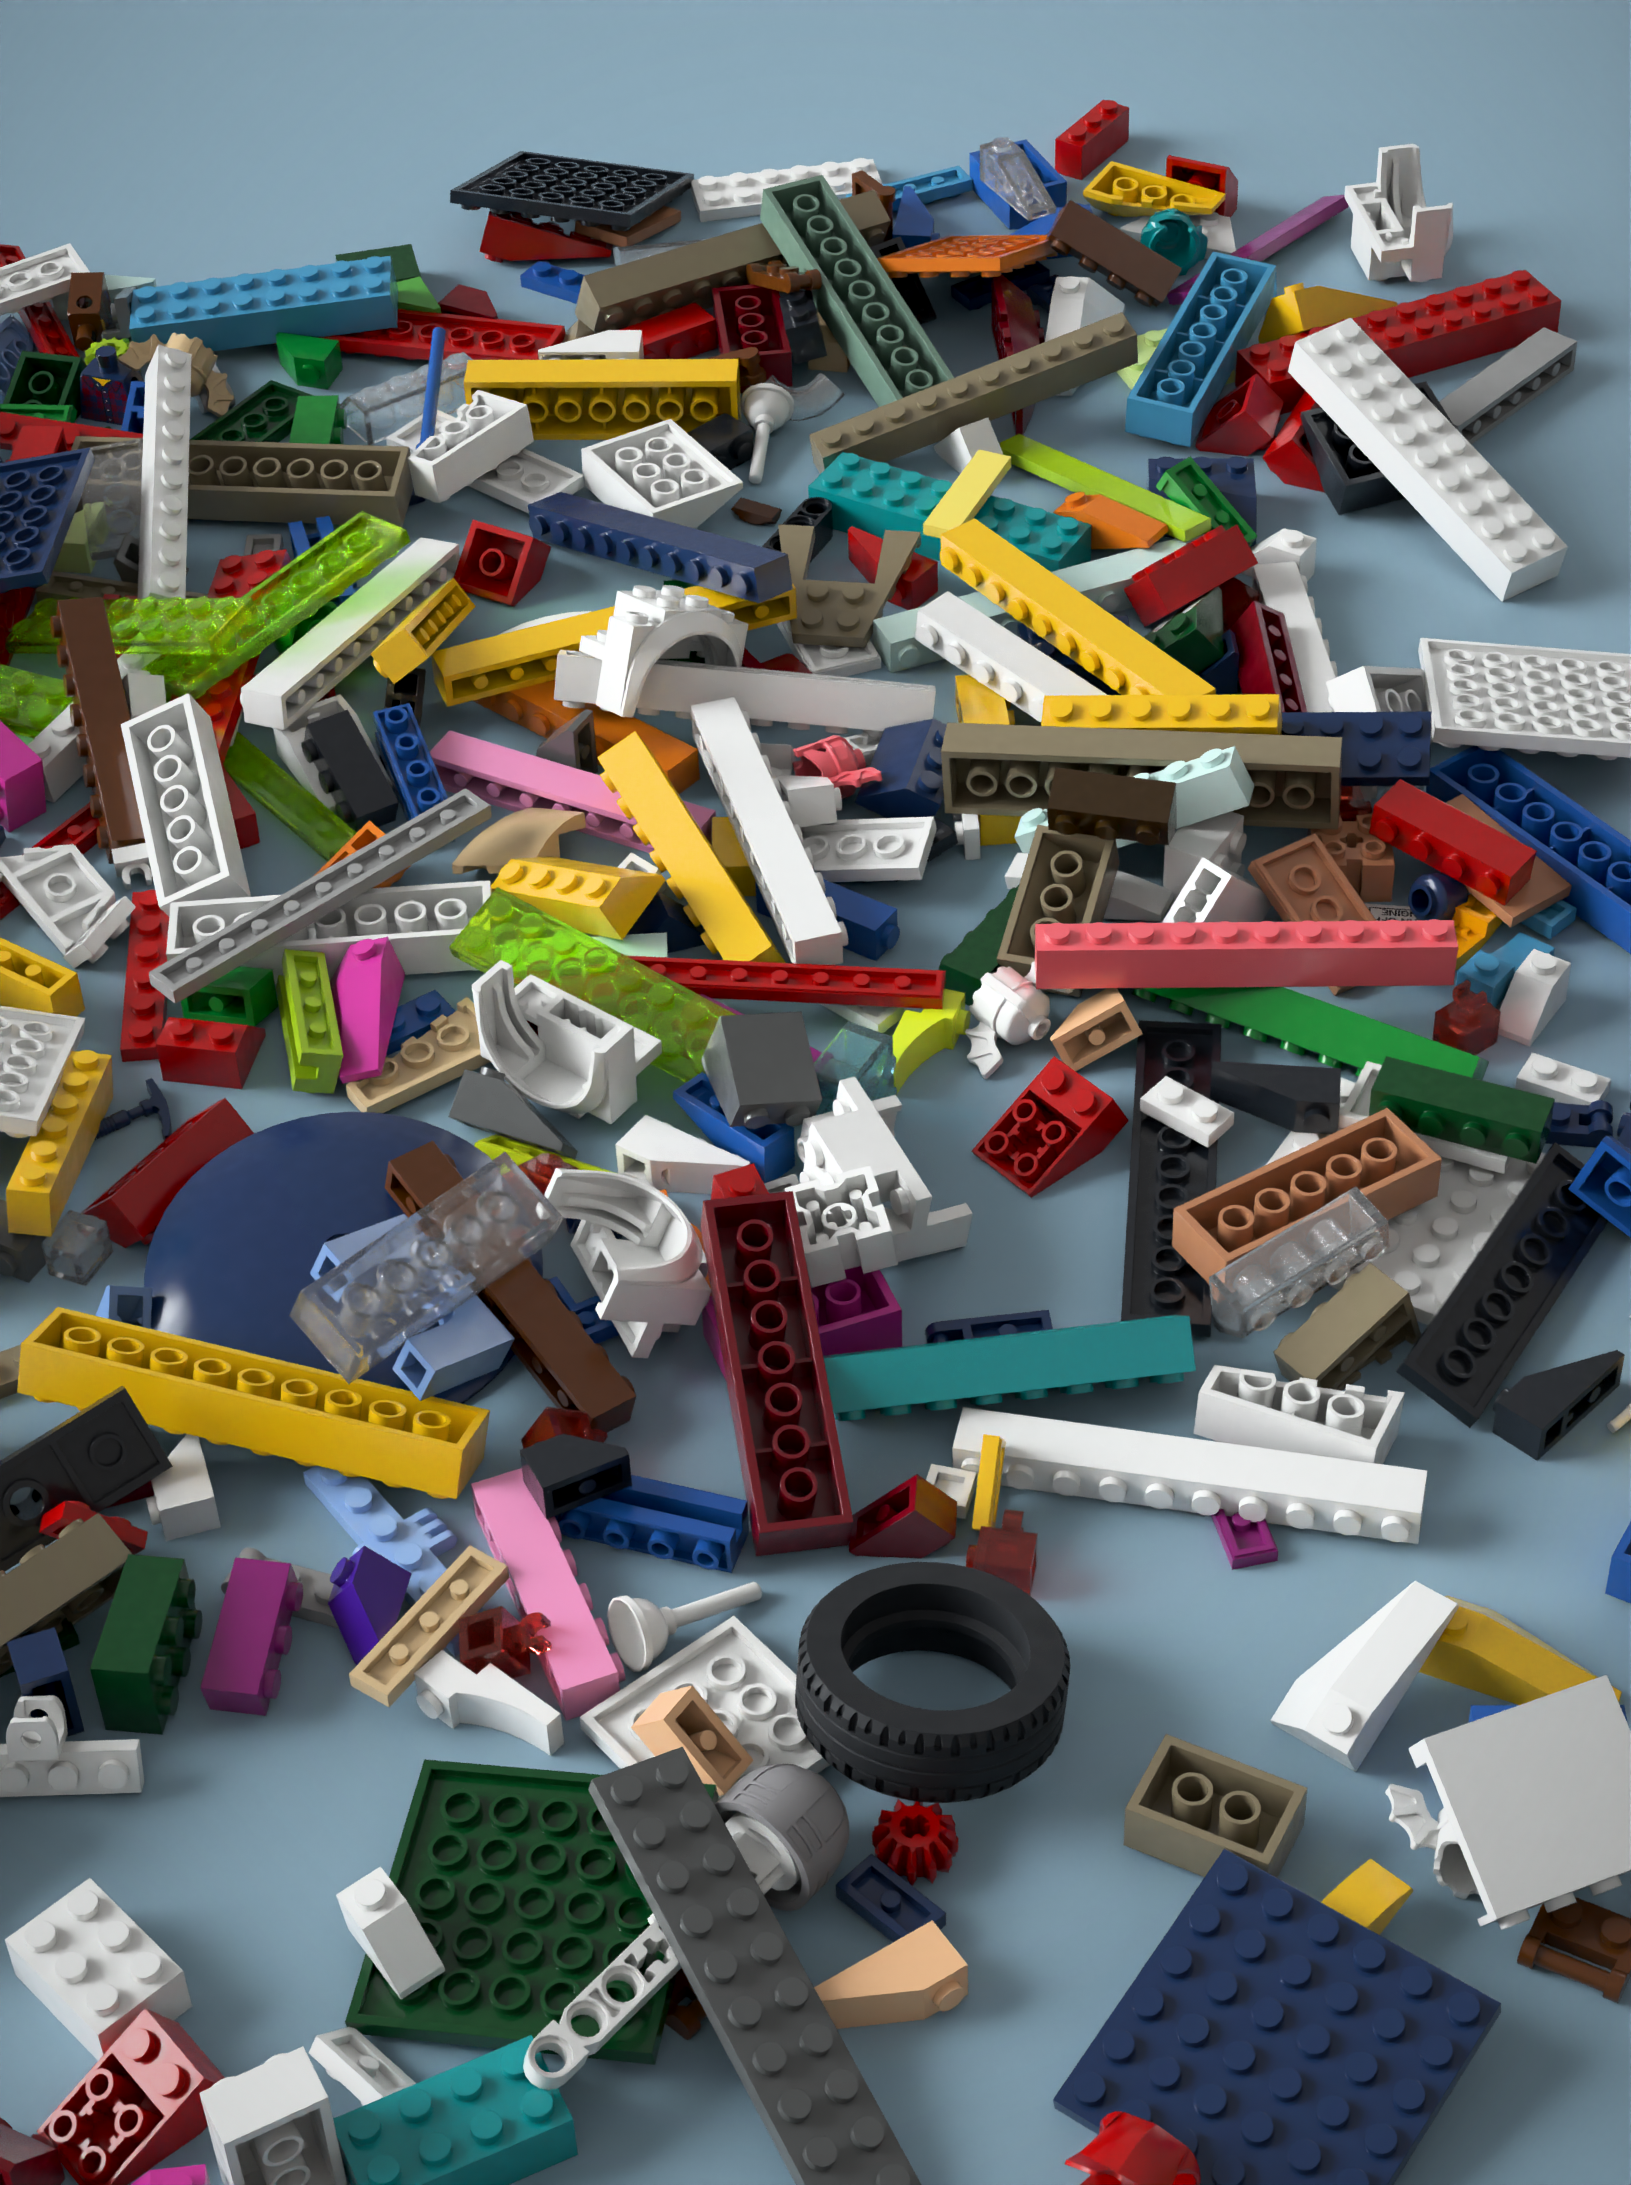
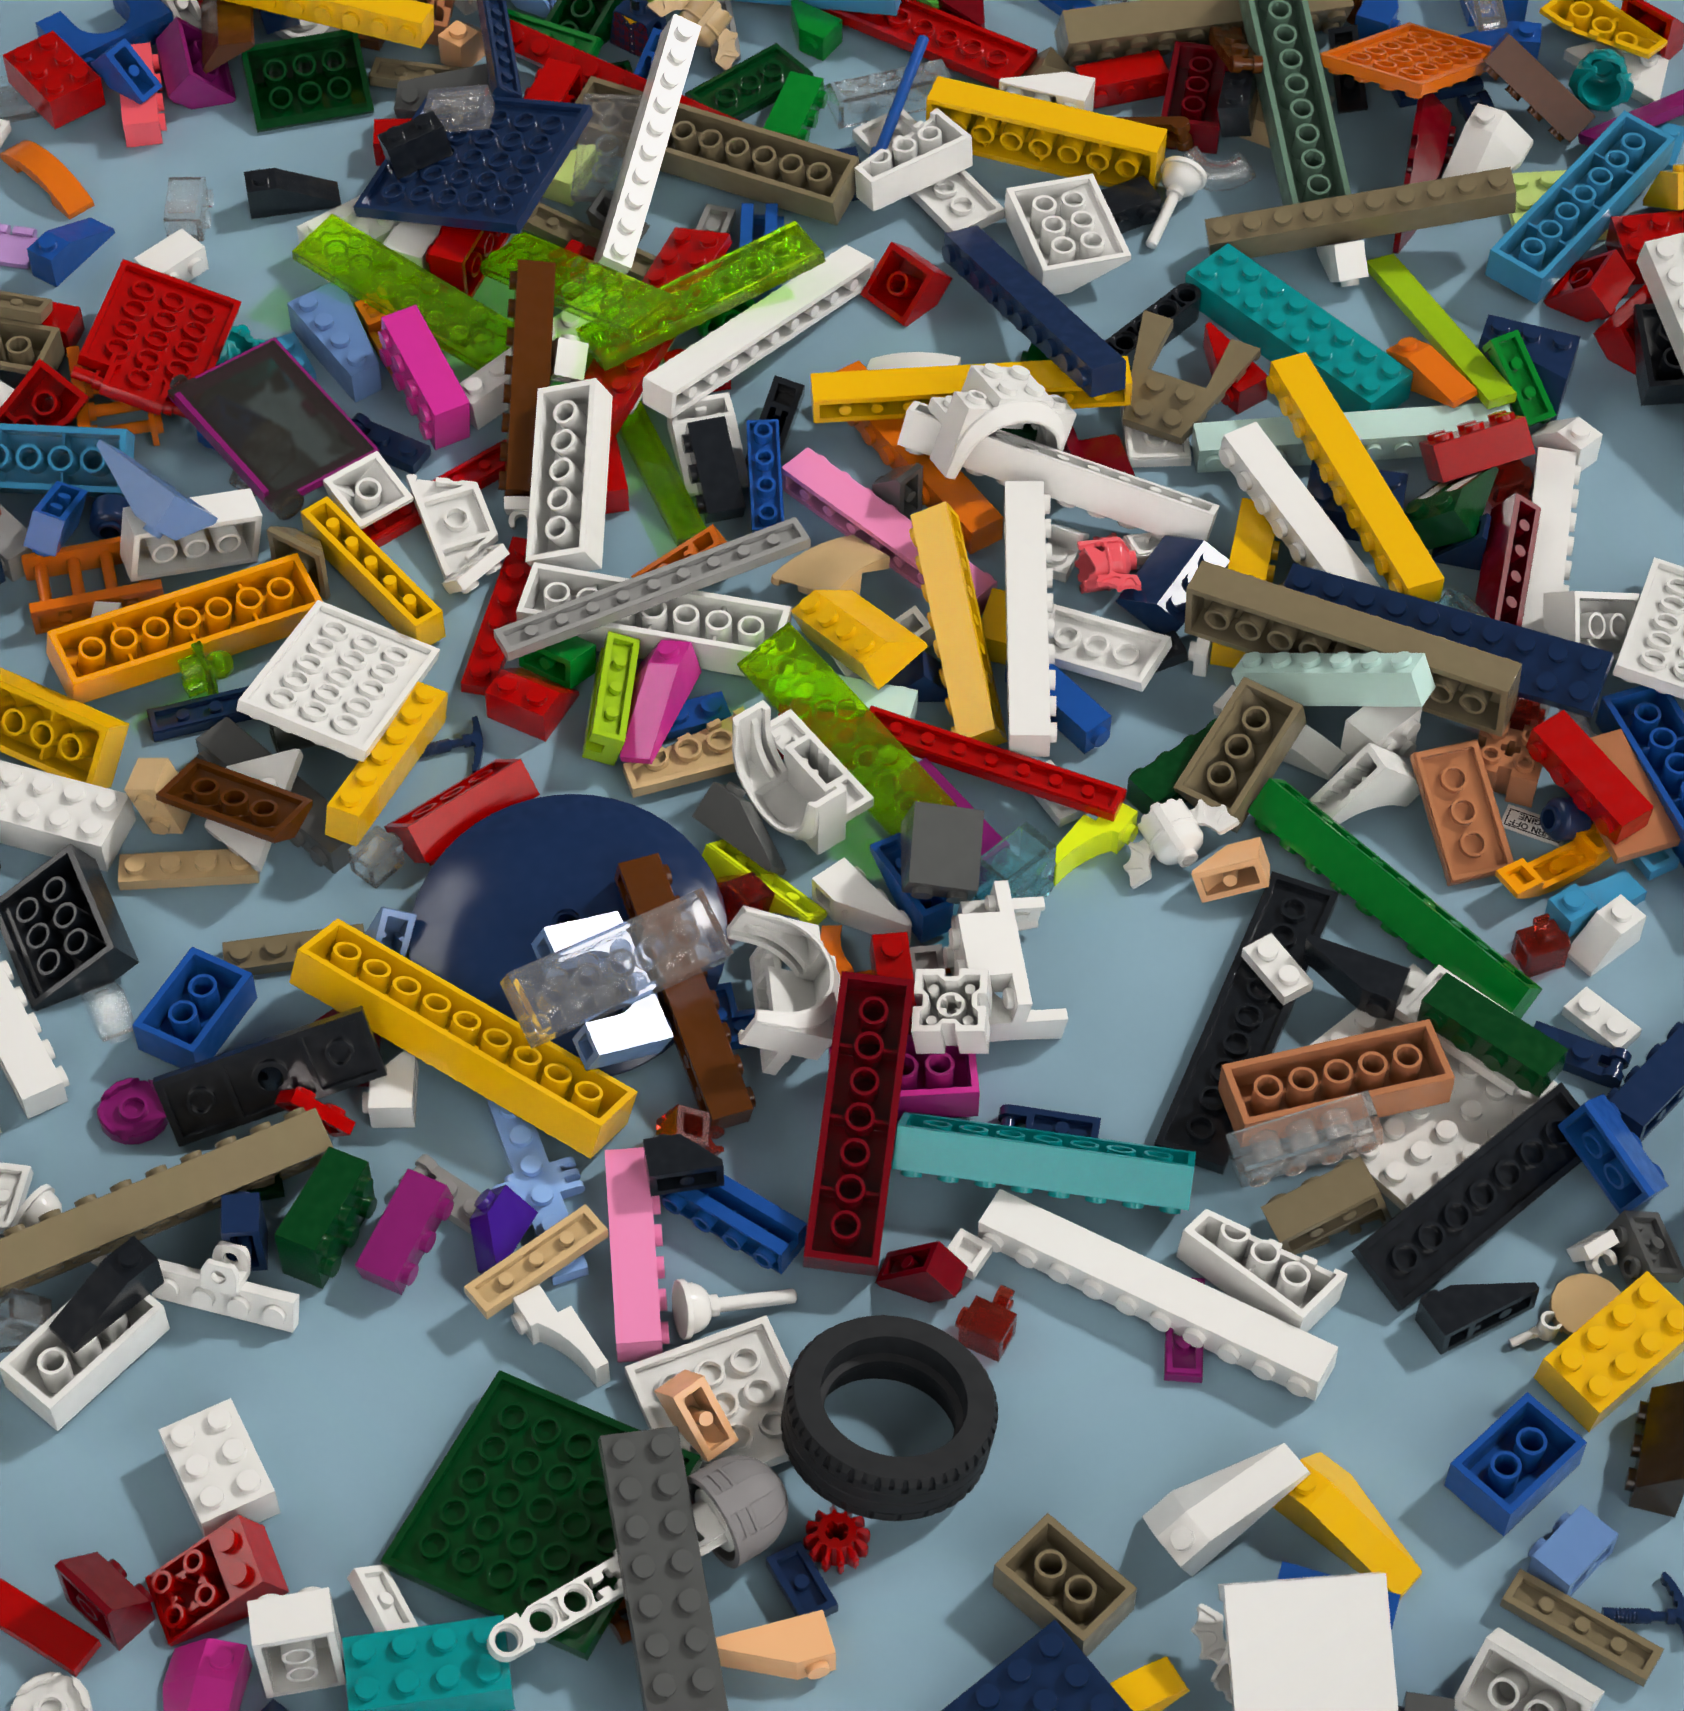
camera: 15 degrees right, 10 degrees up
(389, 1932) = (428, 1505): white slope -> none
(422, 631) = (812, 349): yellow brick -> none
(501, 1640) = (583, 1290): clear red brick -> none
(756, 512) = (1139, 279): reddish brown piece -> none
(811, 799) = (1075, 592): white slope -> none
(968, 492) = (1315, 318): light yellow tile -> none
(989, 1482) = (995, 1260): yellow tile -> none
(1051, 1129) = (1163, 954): red slope -> none
(1112, 807) = (1305, 683): dark brown slope -> none
(1167, 712) = (1388, 601): yellow brick -> none
(1245, 954) = (1370, 844): coral brick -> none

